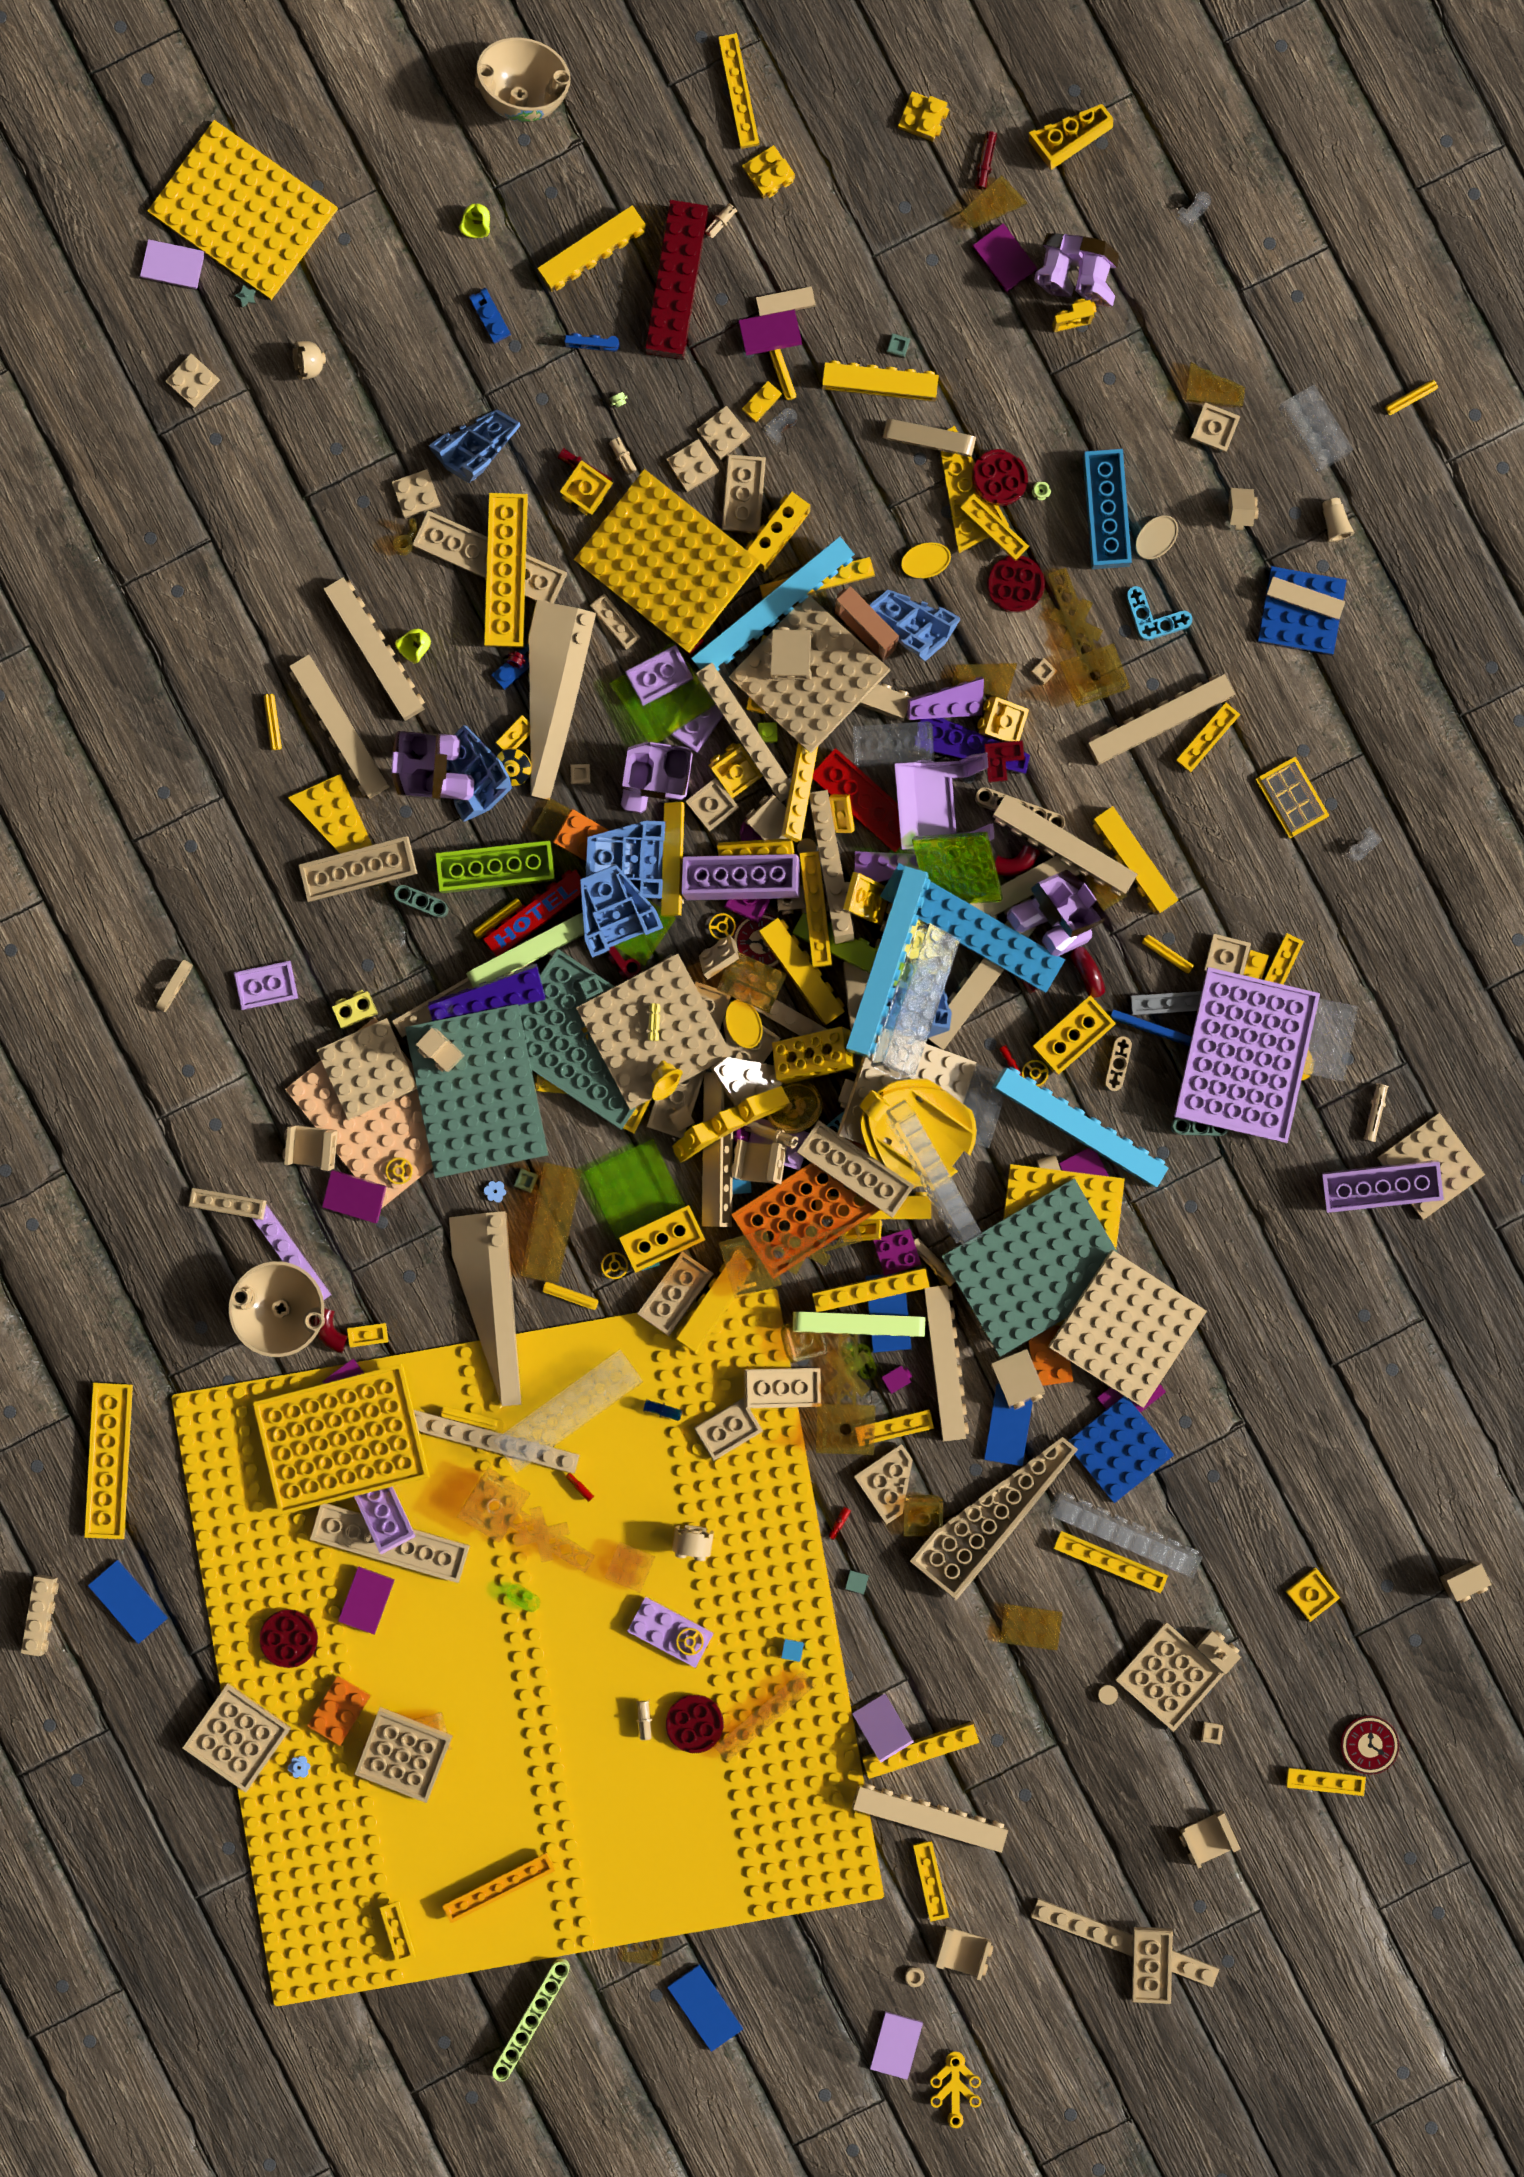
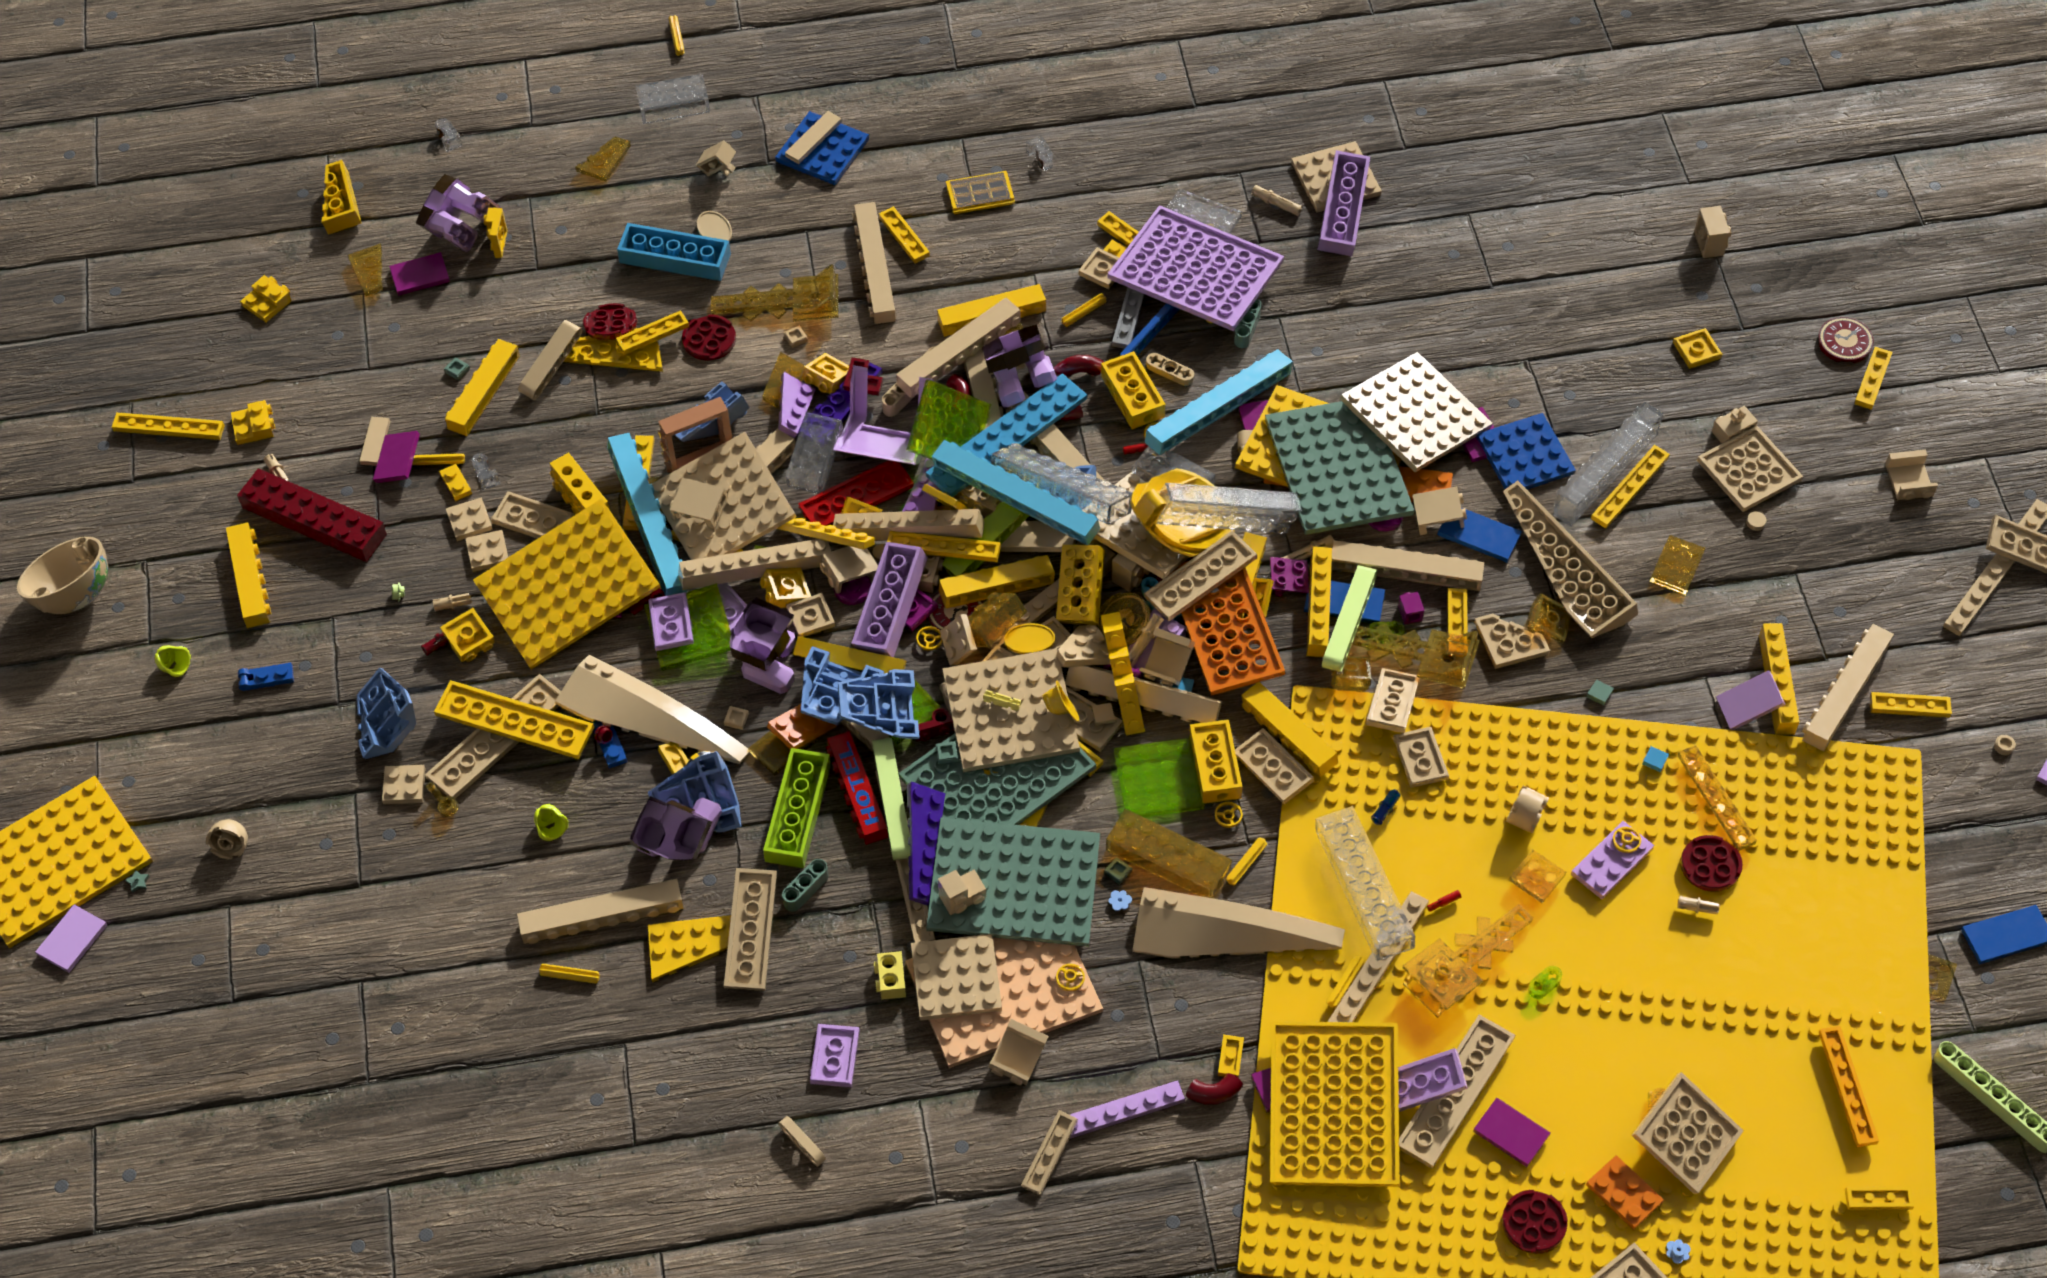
camera: 70 degrees left, 30 degrees down
(192, 380) = (195, 952): tan plate -> none
(261, 1324) = (1167, 1103): tan piece -> none
(354, 1196) = (1082, 1027): magenta tile -> none
(374, 649) = (537, 858): tan brick -> none
(495, 920) = (848, 825): yellow axle -> none
(592, 342) = (334, 597): blue plate -> none
(615, 621) = (606, 649): tan tile -> none
(756, 847) = (869, 570): yellow plate -> none
(758, 1247) = (1252, 674): clear yellow piece -> none
(838, 1525) = (1541, 694): red pin -> none
(926, 560) = (658, 395): yellow piece -> none
(964, 1952) = (1988, 695): tan panel -> none
(985, 161) = (333, 266): dark red pin -> none
(1046, 491) = (635, 297): yellowish green plate -> none
(1148, 620) = (785, 252): medium azure beam -> none
(1211, 1732) = (1809, 452): tan tile -> none
(1215, 427) = (639, 165): tan plate -> none
(1336, 520) = (756, 103): tan plant -> none

